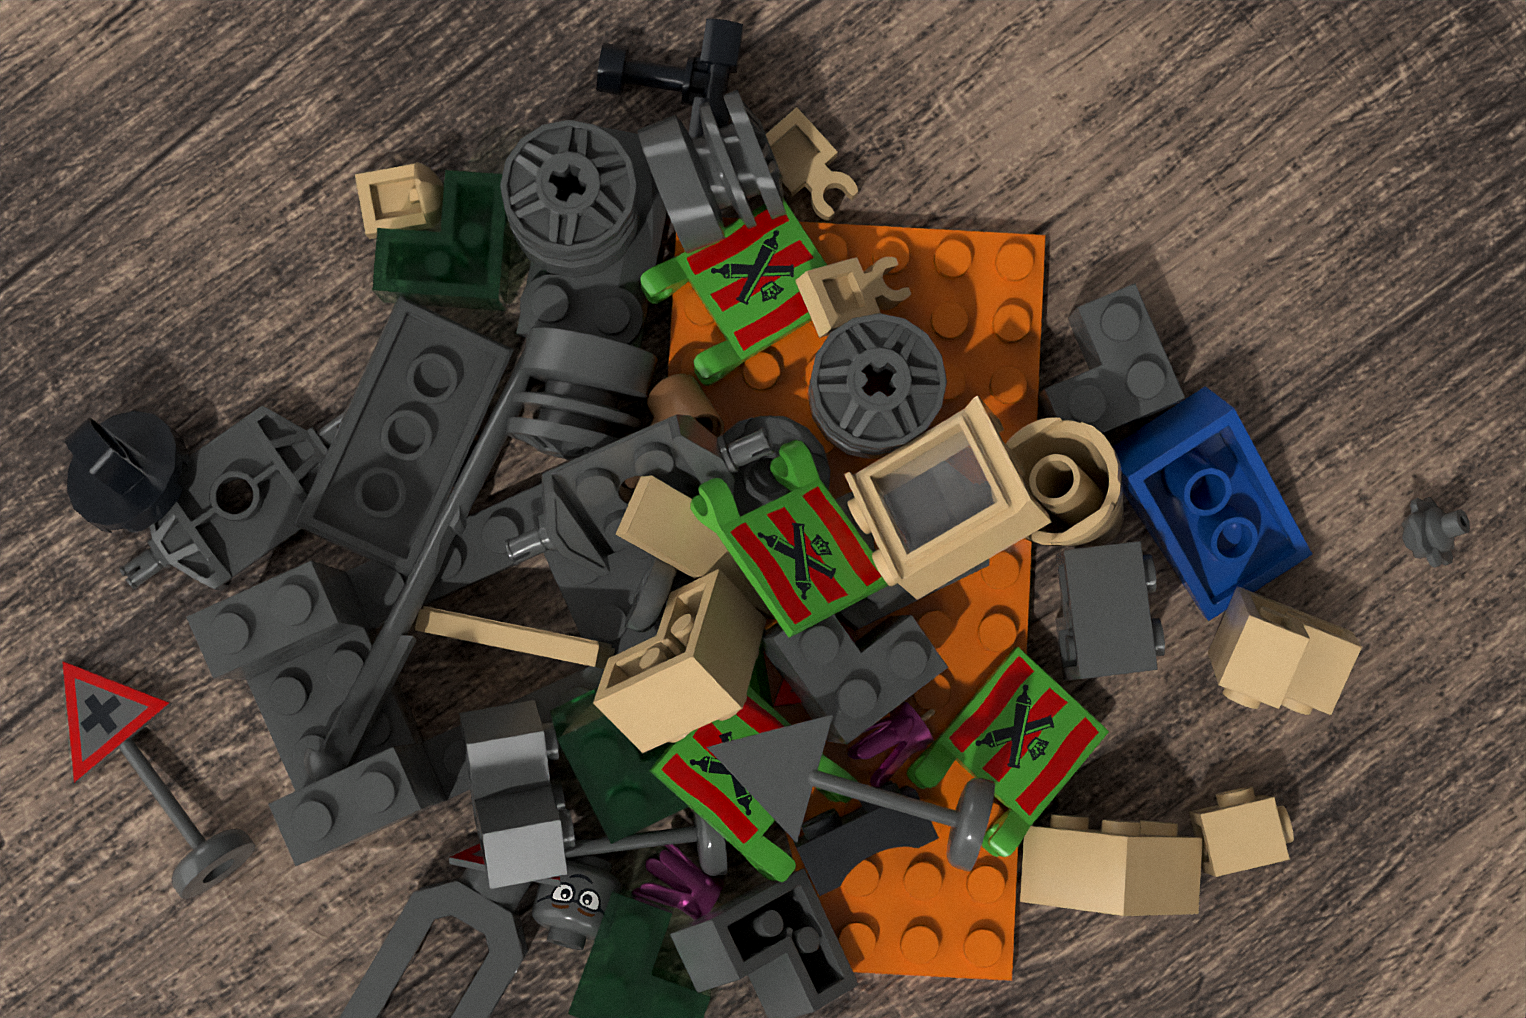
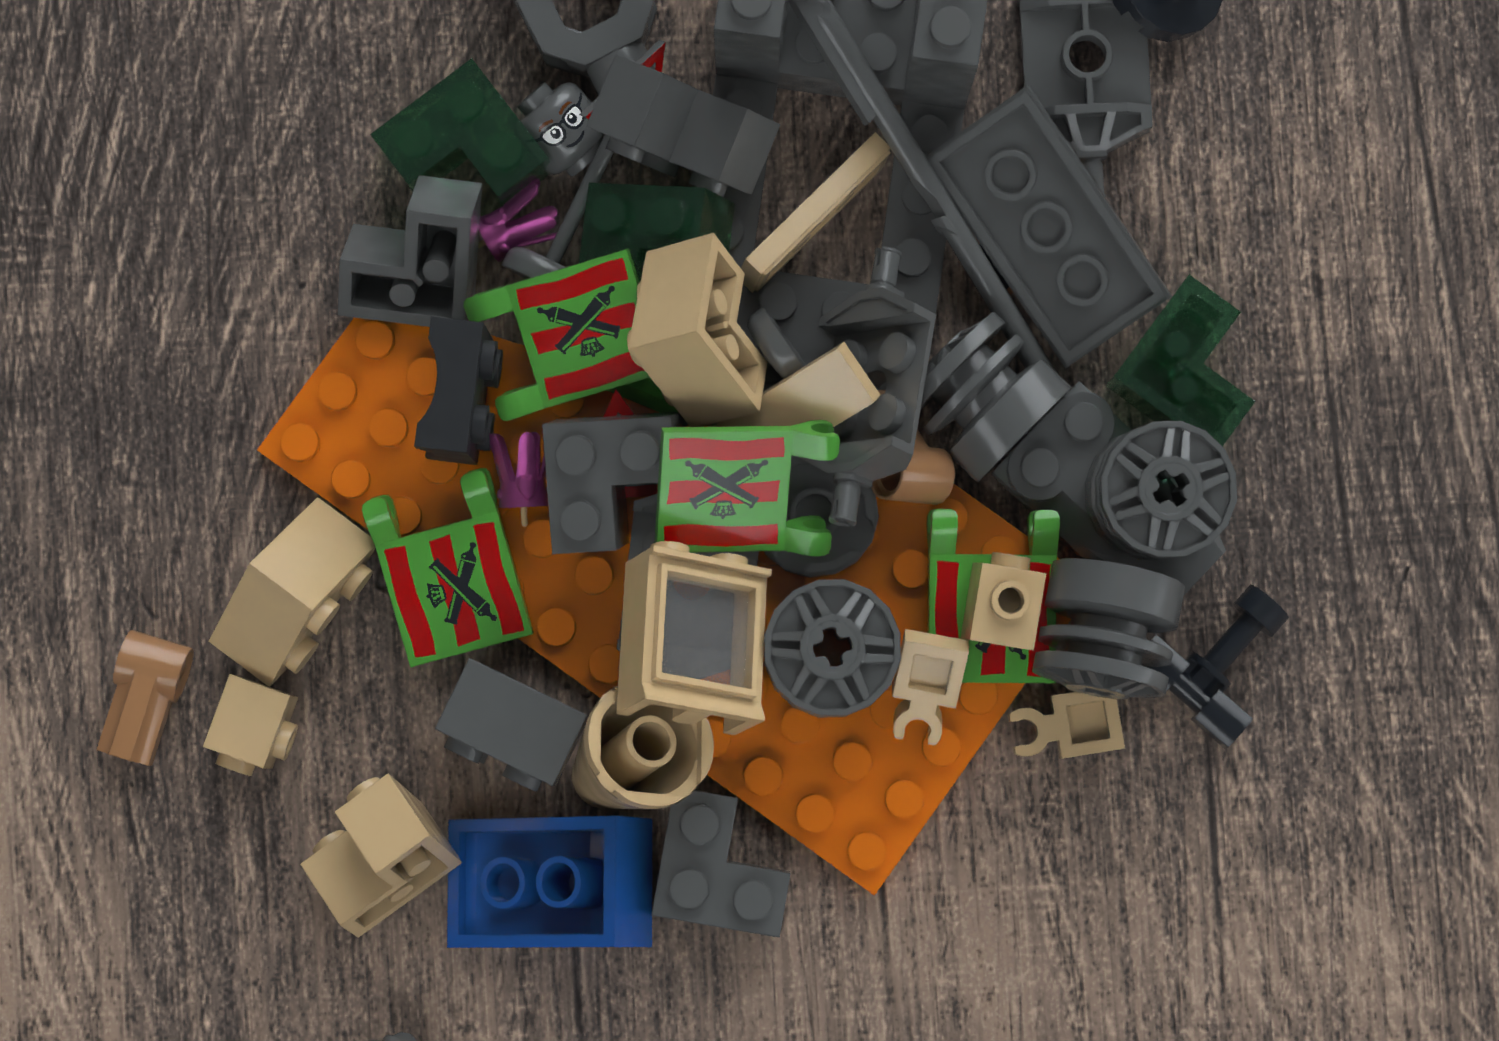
camera: 130 degrees right, 0 degrees up
(400, 198) = (1260, 353): tan plate -> none
(746, 270) = (1003, 602): none -> tan brick
(783, 769) = (555, 352): dark grey piece -> none
(1260, 943) = (148, 679): none -> medium nougat piece

